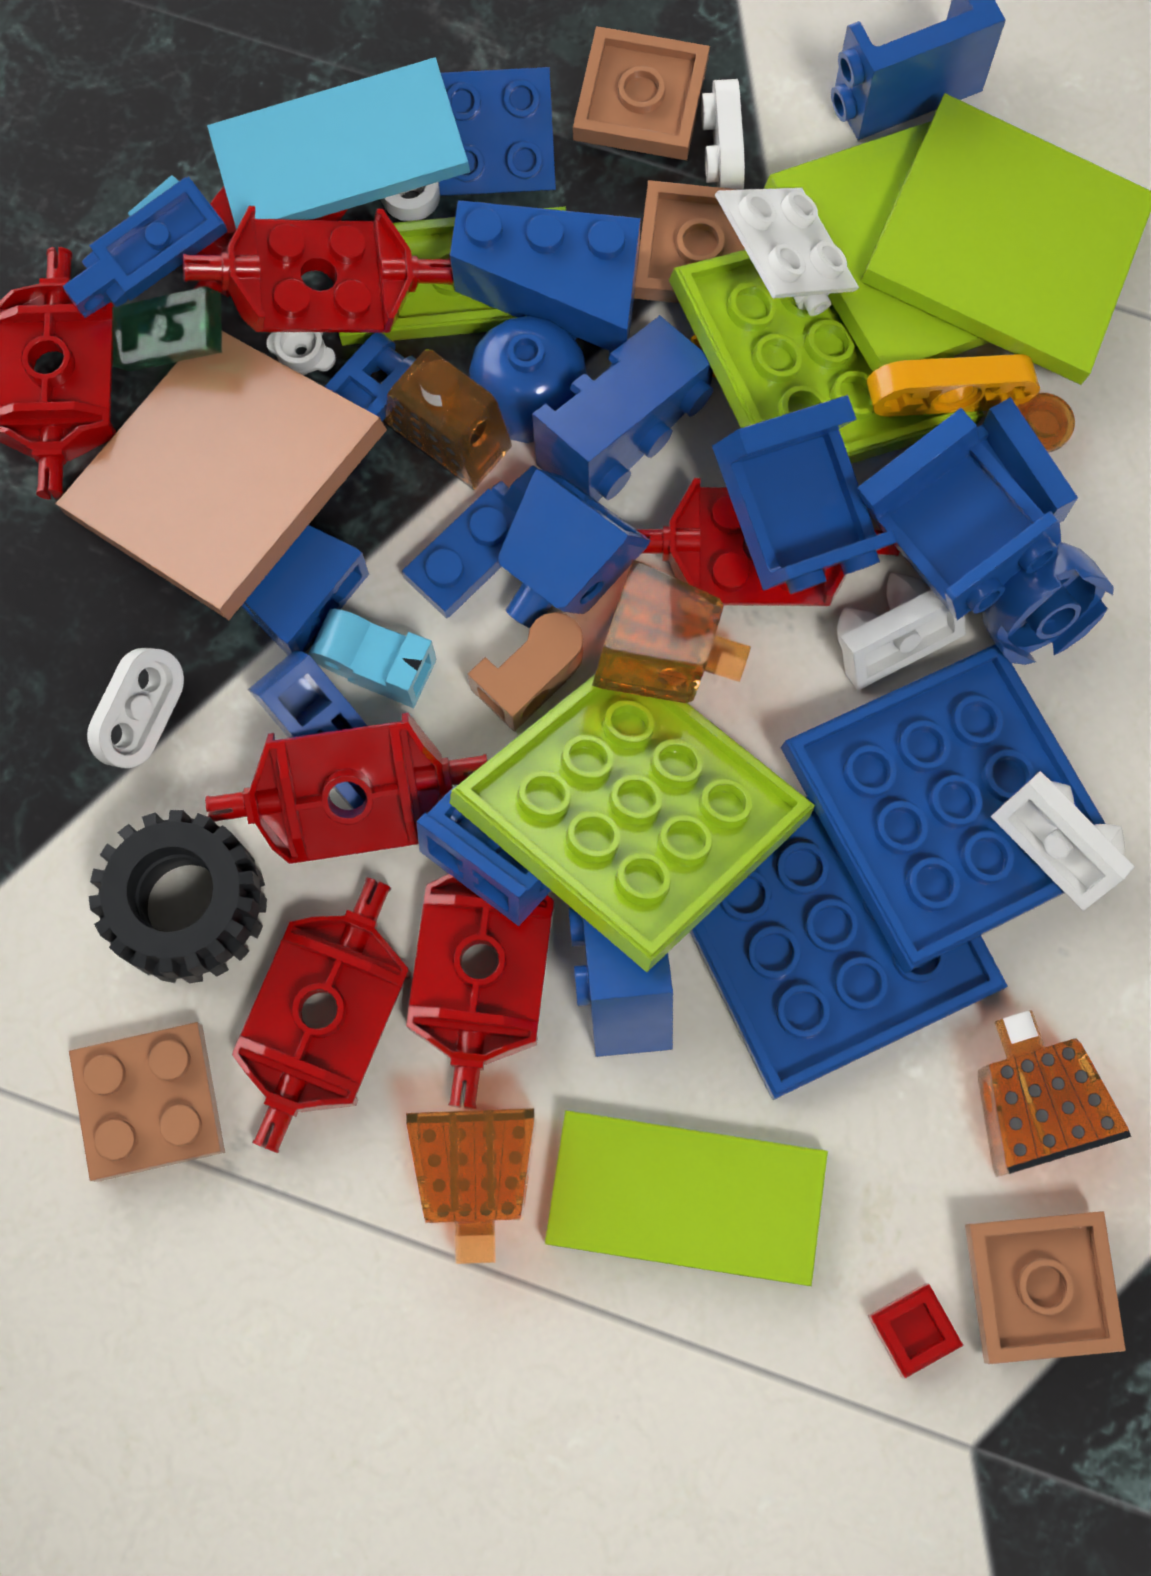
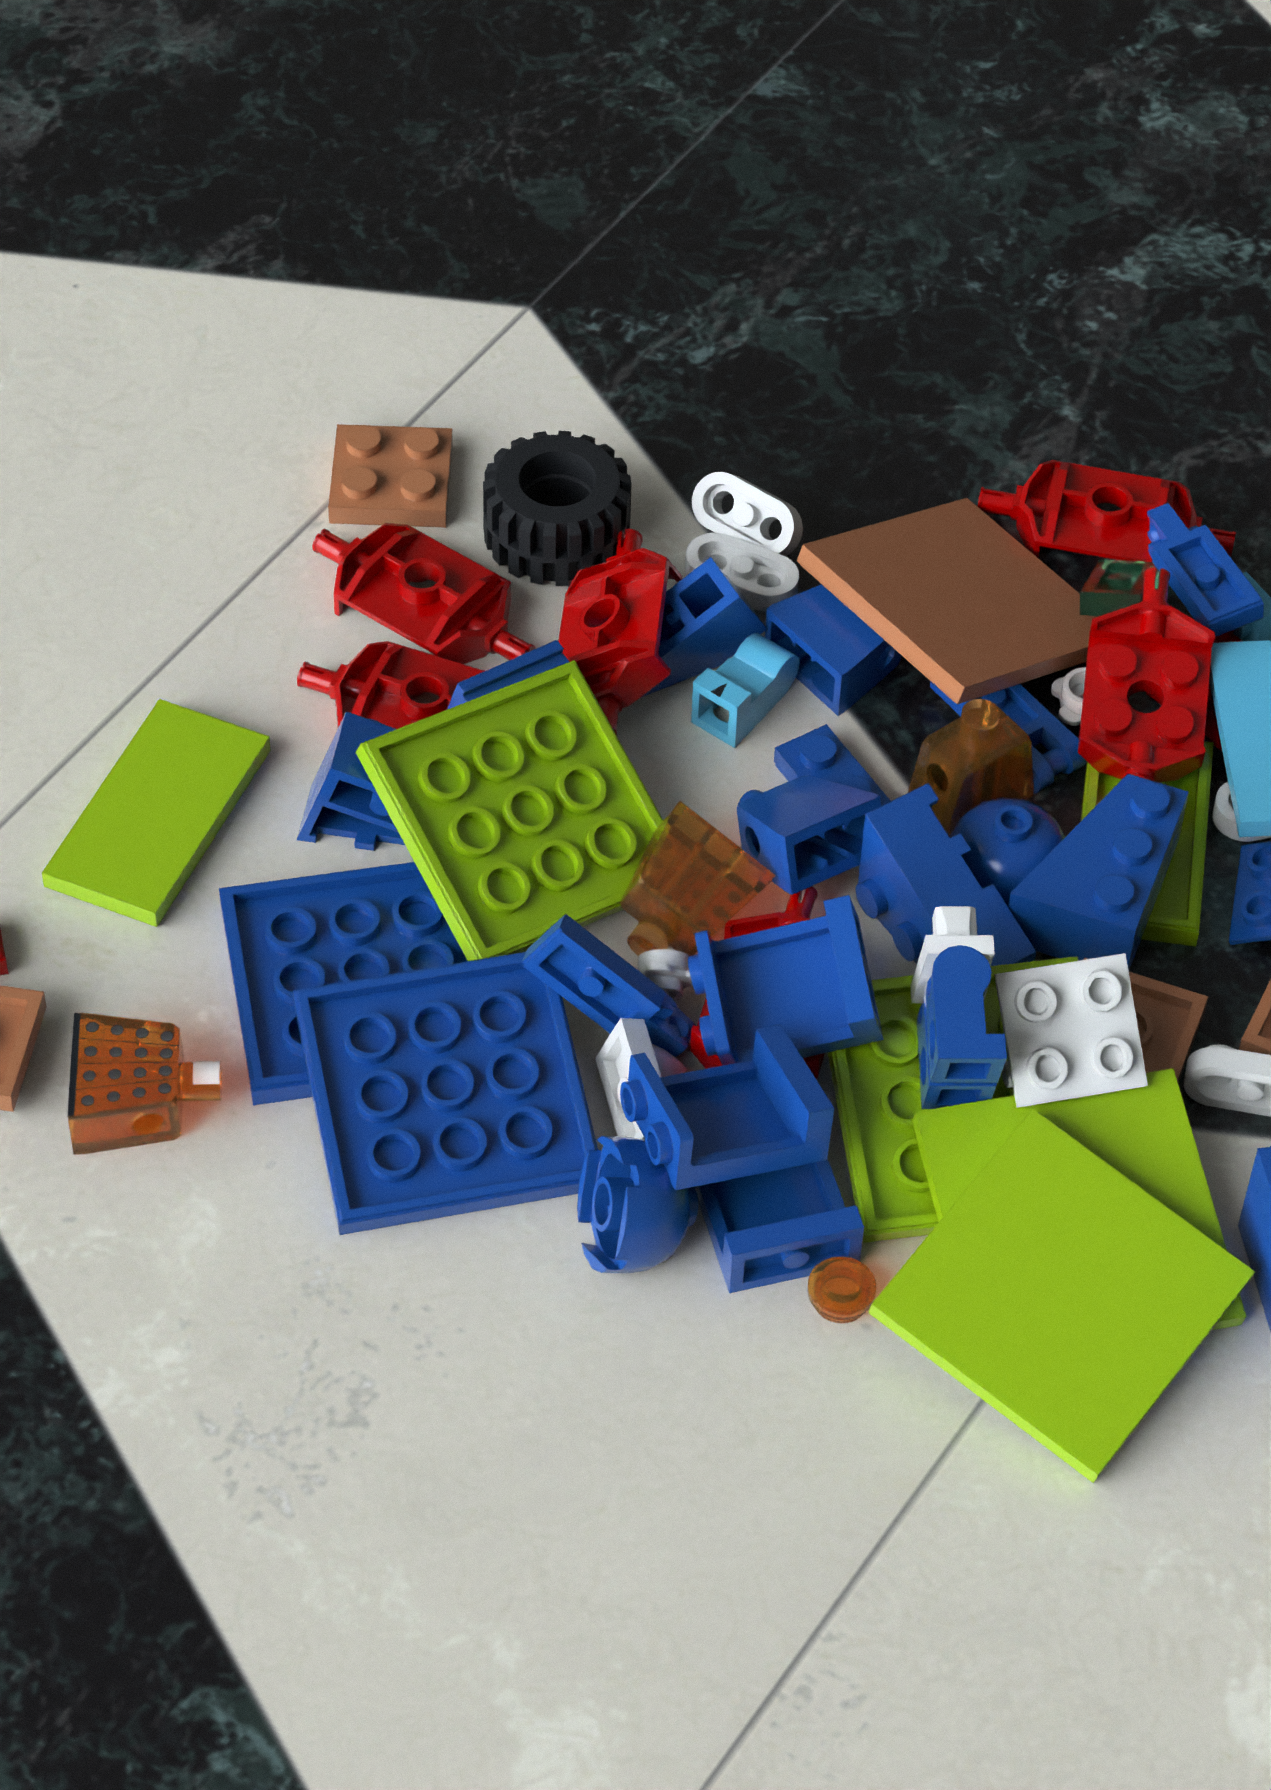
camera: 100 degrees right, 25 degrees down
(214, 699) = (756, 571): none -> white plate
(472, 1172) = (241, 660): clear orange torso -> none
(532, 672) = (683, 774): nougat leg -> none
(768, 639) = (667, 970): none -> white plate
(808, 333) = (951, 982): none -> blue hips
(817, 674) = (605, 984): none -> blue hinge
(951, 384) = (891, 1180): light orange beam -> none
(1070, 849) = (351, 1166): white tile -> none

